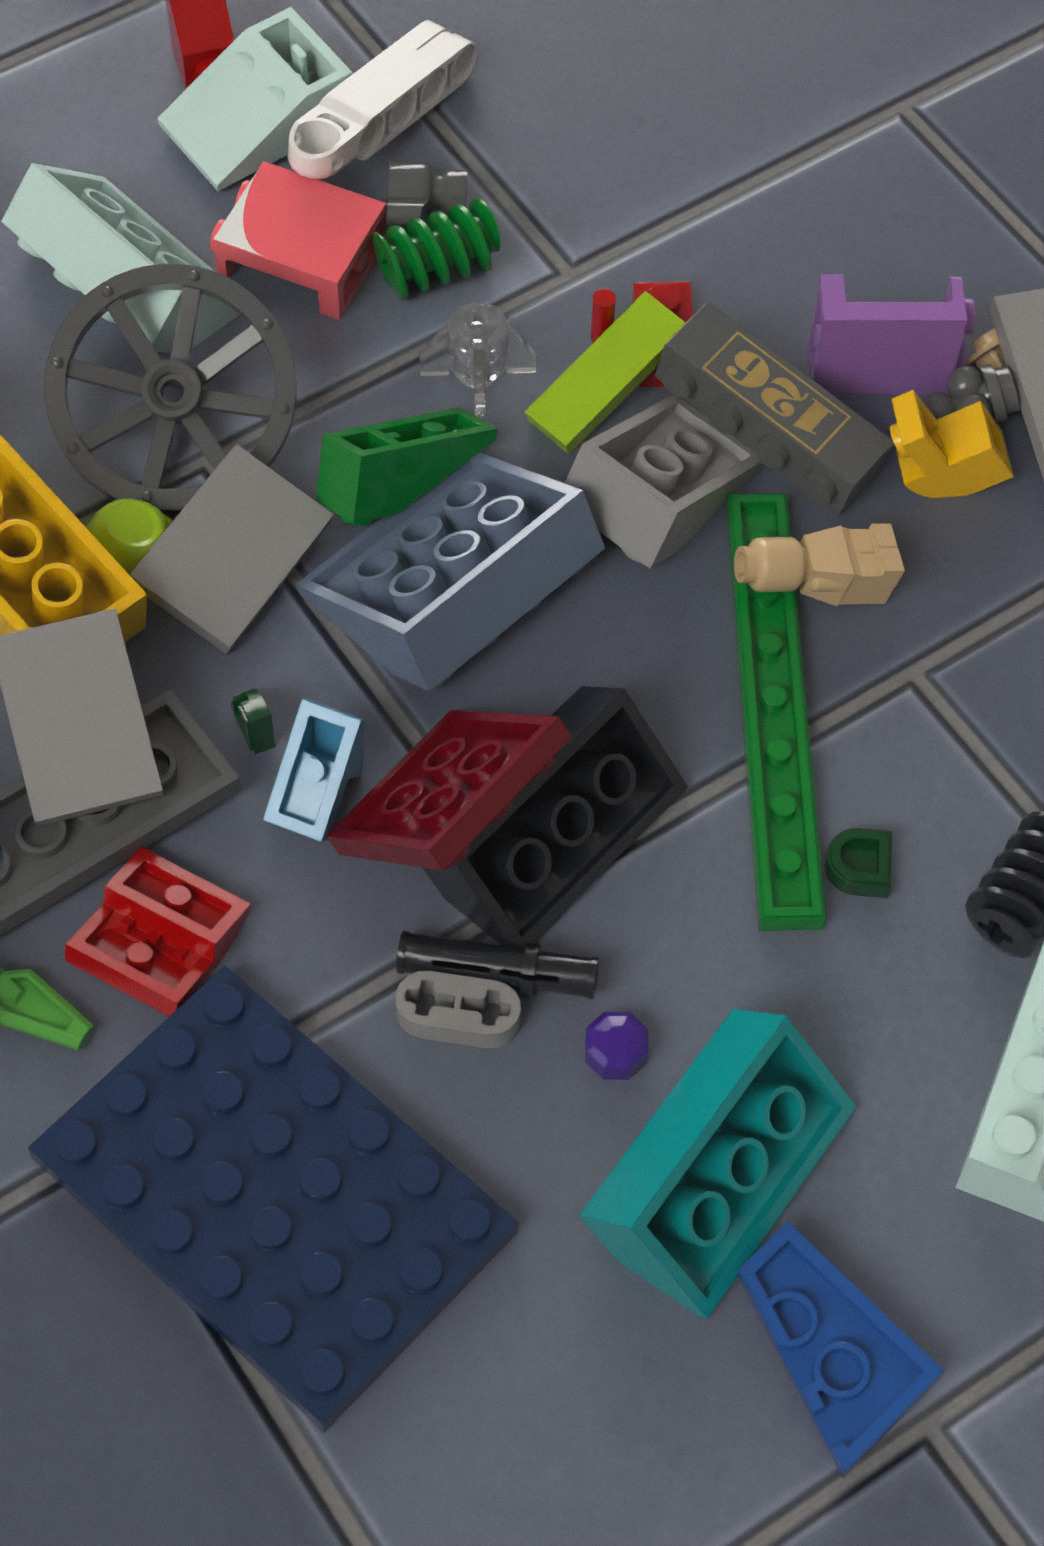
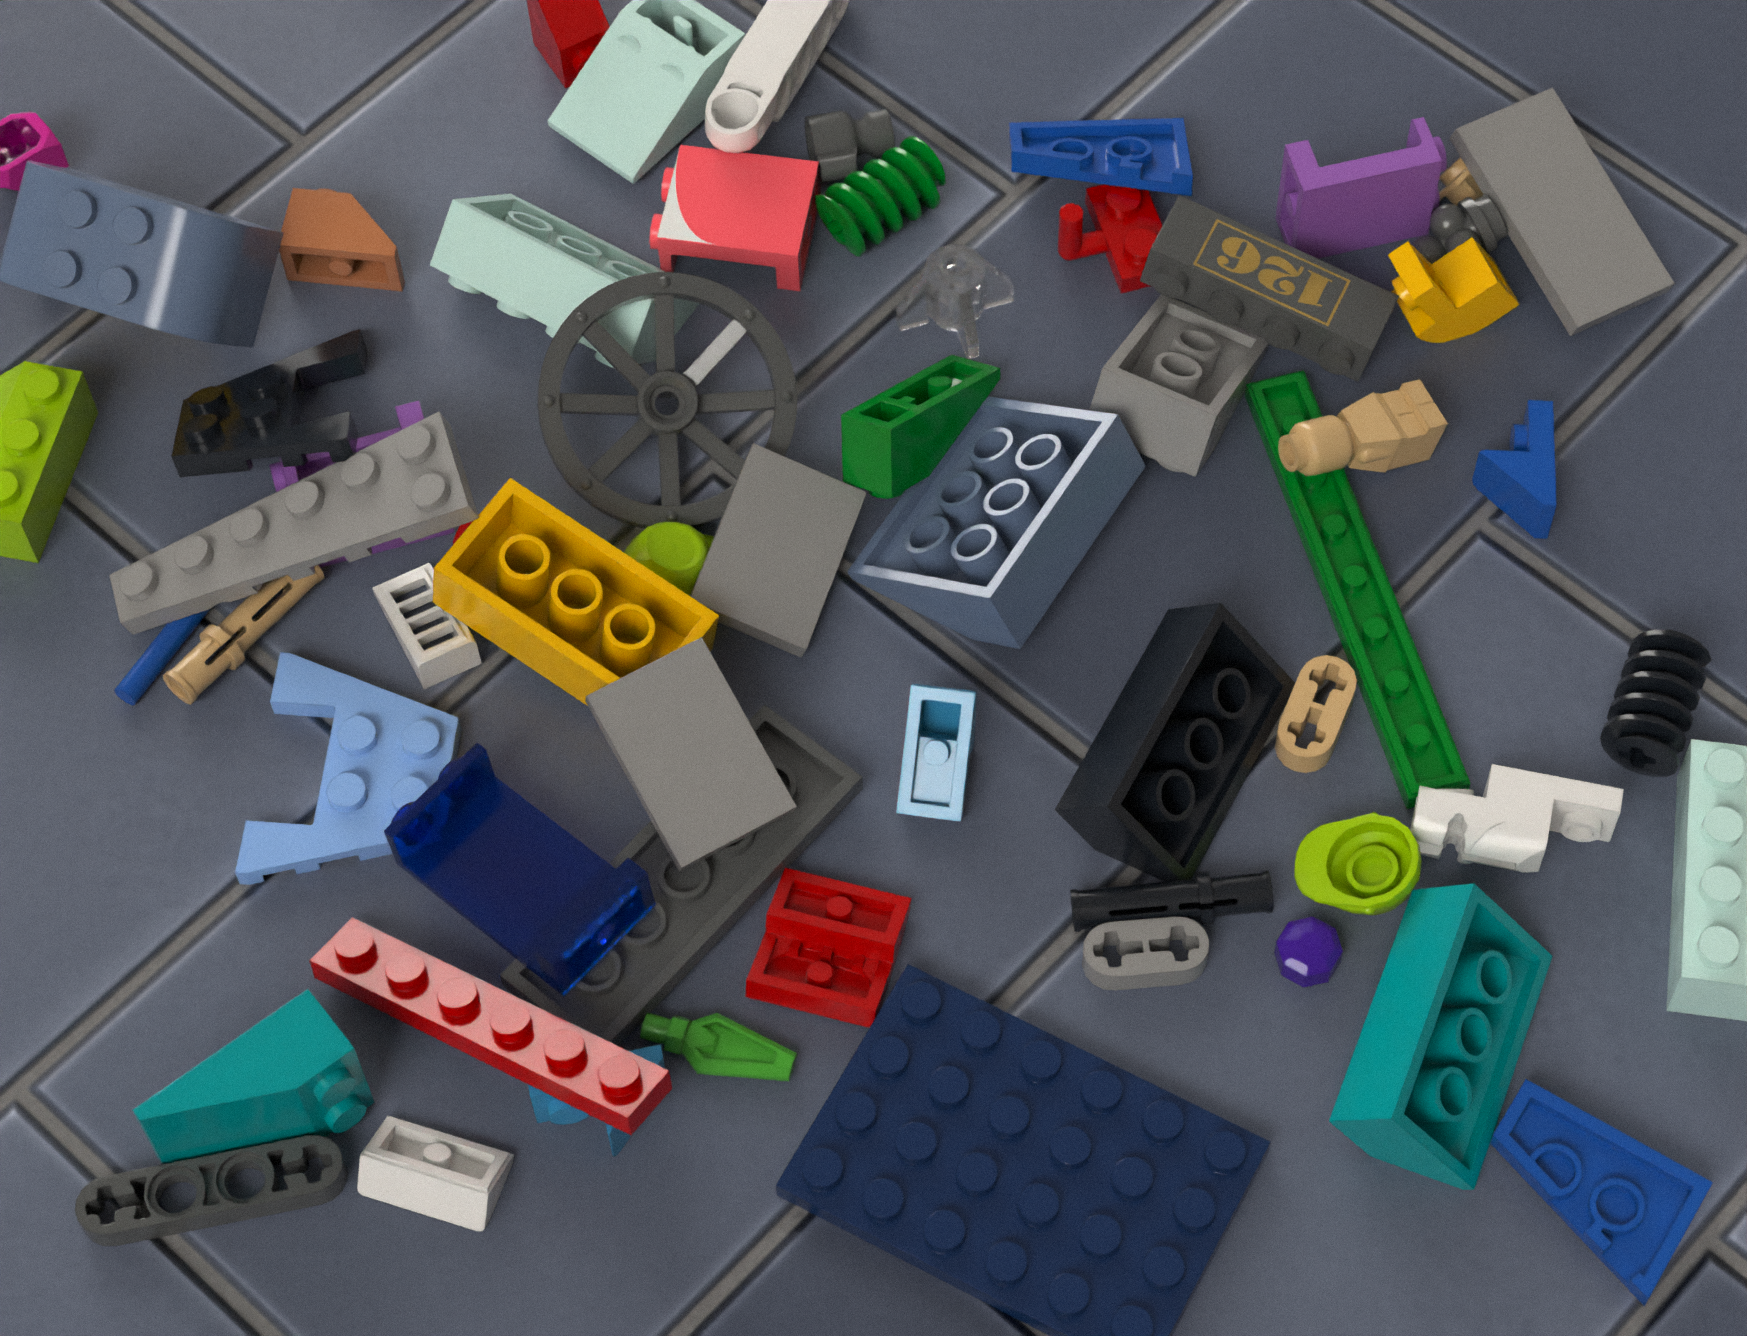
camera: 10 degrees left, 0 degrees up
(254, 720) = (854, 715): dark green tile -> none
(449, 788) = (1078, 739): dark red plate -> none
(604, 373) = (1091, 287): lime tile -> none
(659, 252) = (1107, 152): none -> blue wing
(688, 972) = (1359, 864): none -> lime hat
(706, 826) = (1303, 709): none -> tan beam
(853, 962) = (1513, 817): none -> white plate
(860, 862) = (1485, 720): dark green tile -> none
(965, 639) = (1525, 476): none -> blue slope

